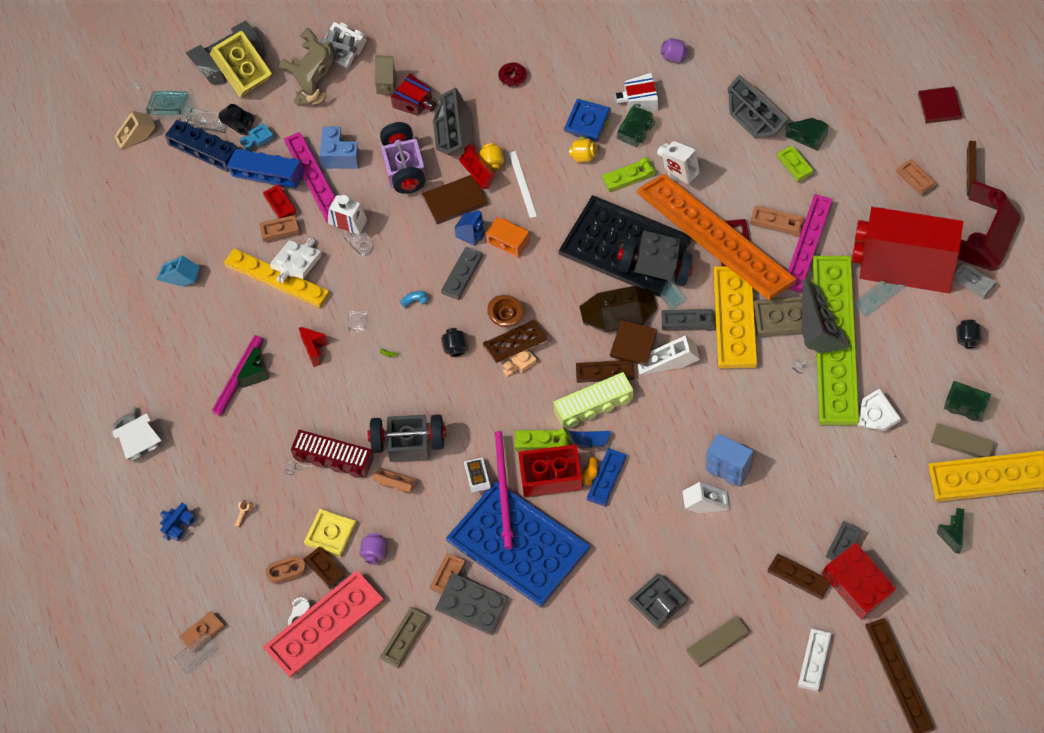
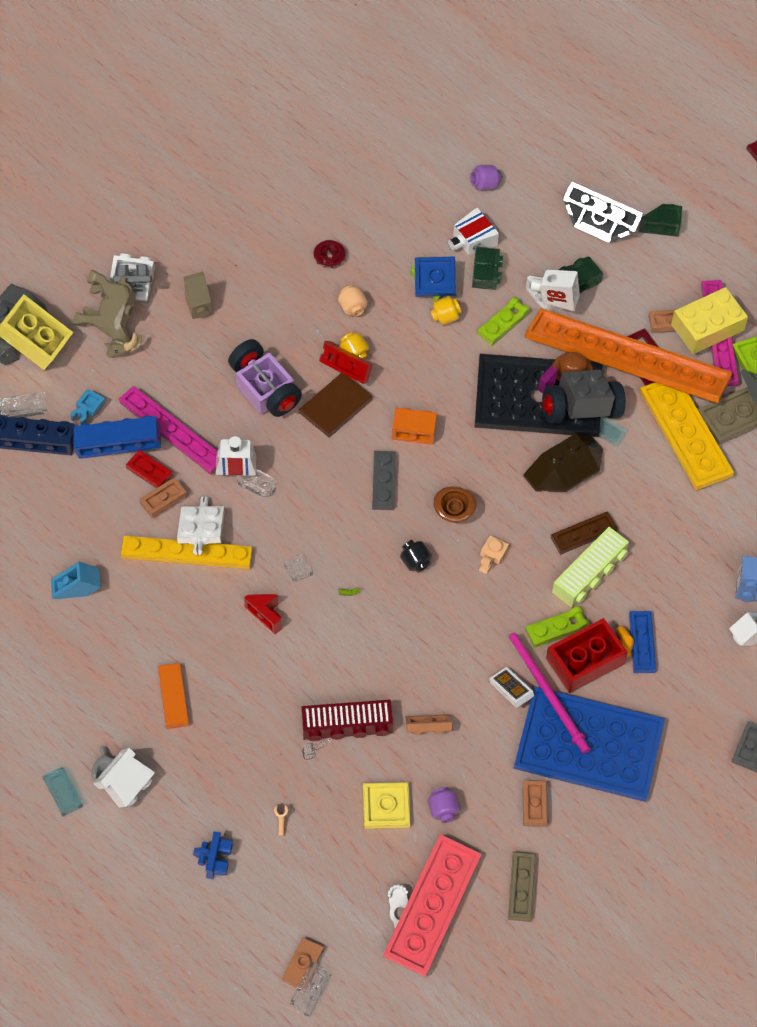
camera: 30 degrees left, 0 degrees up
(89, 431) = (62, 791): none -> clear light blue tile
(209, 387) = (173, 696): none -> orange tile
(232, 383) = (198, 672): dark pink axle -> none
(236, 118) = (56, 394): black piece -> none
(251, 371) = (214, 663): dark green slope -> none
(285, 568) = (359, 863): nougat plate -> none
(324, 567) = (401, 844): reddish brown plate -> none
(336, 152) = (185, 396): medium blue brick -> none
(407, 436) = (422, 672): dark grey brick -> none
(412, 296) = (346, 521): dark azure arm -> none
(413, 96) = (237, 309): dark red torso -> none
(452, 123) = (294, 326): dark grey wedge -> none
(470, 227) = (372, 428): blue slope -> none
(471, 603) = (575, 824): dark grey plate -> none
(509, 118) = (352, 300): none -> light nougat head
(511, 350) = (476, 519): reddish brown window -> none
(522, 183) = (398, 366): white sticker -> none
(588, 438) = (606, 607): blue piece -> none
(633, 343) = (602, 493): reddish brown tile -> none
(635, 232) = (548, 378): none -> magenta tile
(663, 226) = (571, 362): none -> dark orange hat
(671, 356) = (642, 496): white slope -> none
(688, 319) = (641, 451): dark grey plate -> none
(712, 157) = (588, 273): none -> clear green brick
(794, 163) = (665, 256): lime plate -> none
(799, 228) = (709, 320): none -> light yellow brick

